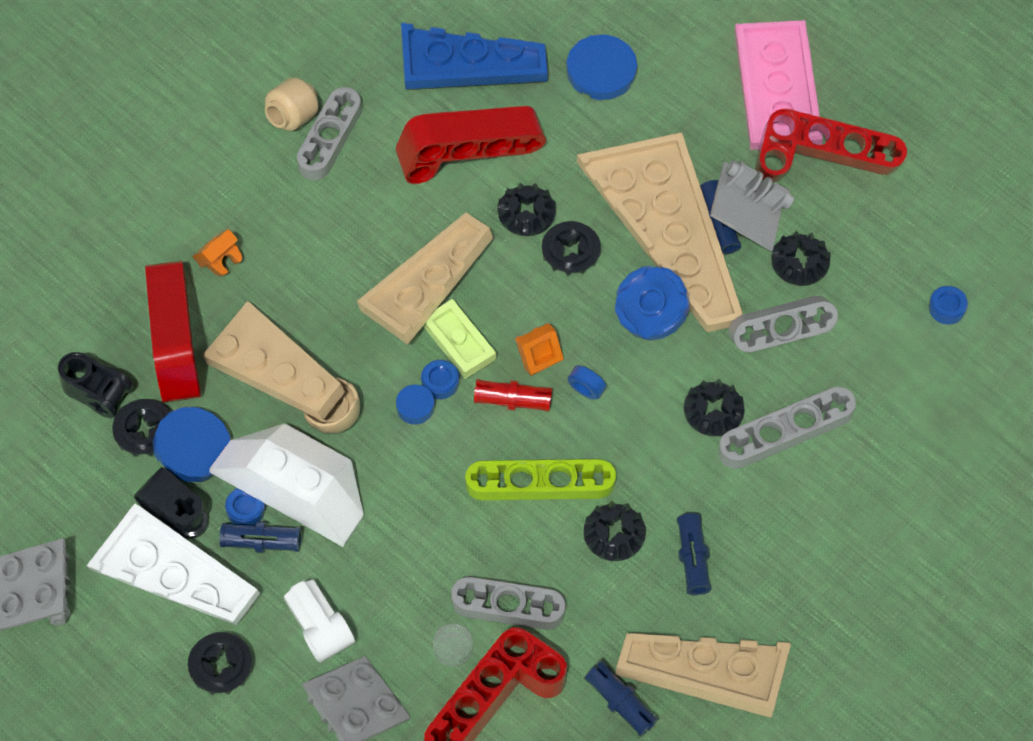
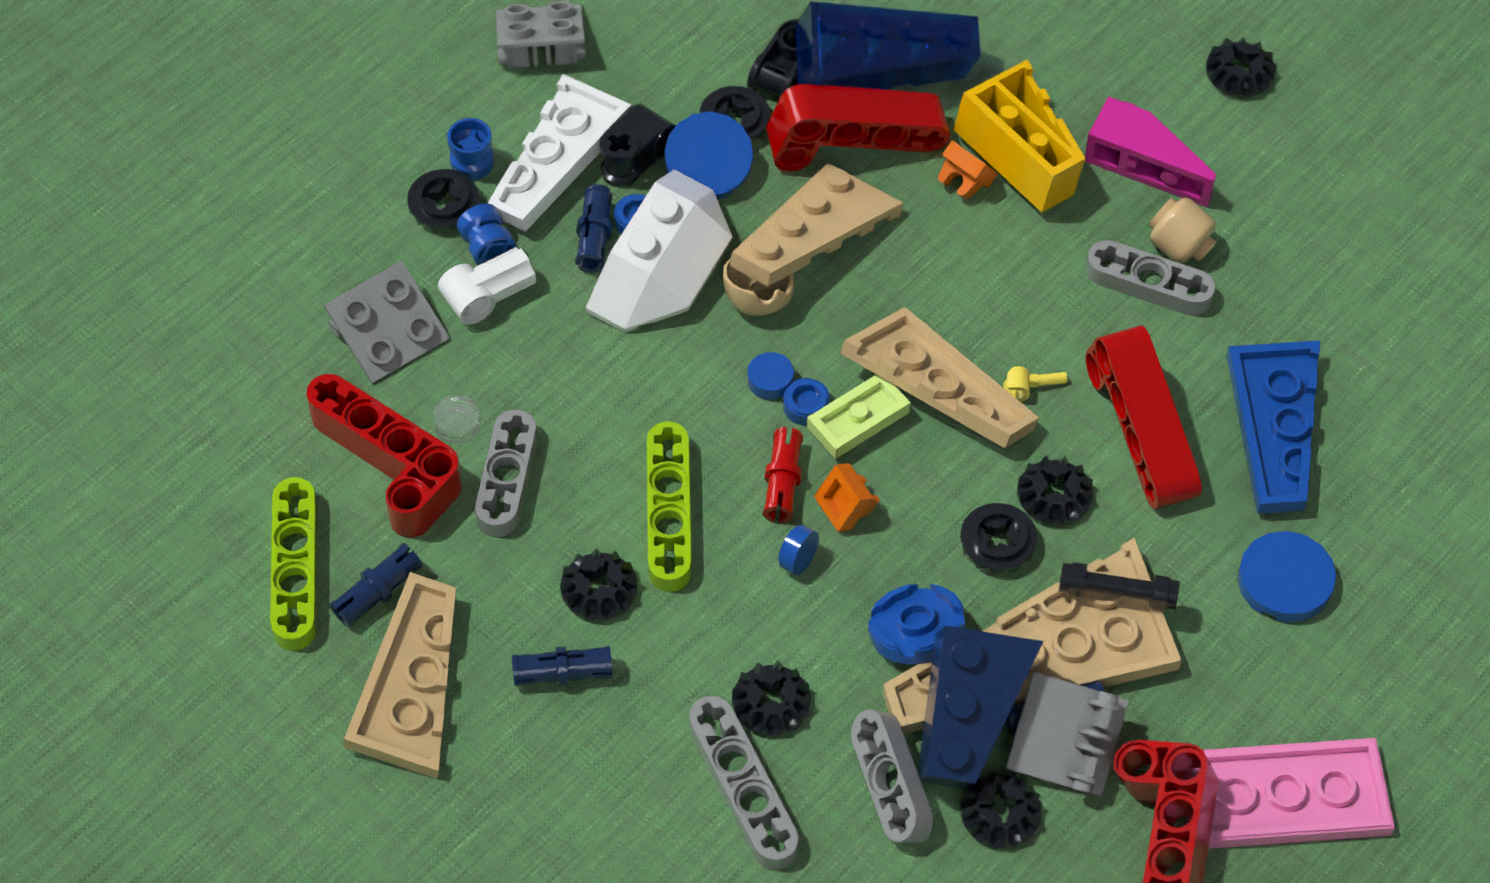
camera: 90 degrees right, 5 degrees down
(105, 307) = (883, 46): none -> clear blue wedge
(110, 65) = (1235, 79): none -> black gear
(167, 629) = (471, 147): none -> blue wheel
(195, 206) = (1021, 137): none -> yellow wedge
(207, 124) = (1146, 151): none -> dark pink slope
(267, 622) = (484, 232): none -> blue wheel
(428, 227) = (1020, 380): none -> light yellow hand
(622, 186) = (1161, 592): none -> black bar
(735, 259) = (968, 701): none -> dark blue wedge

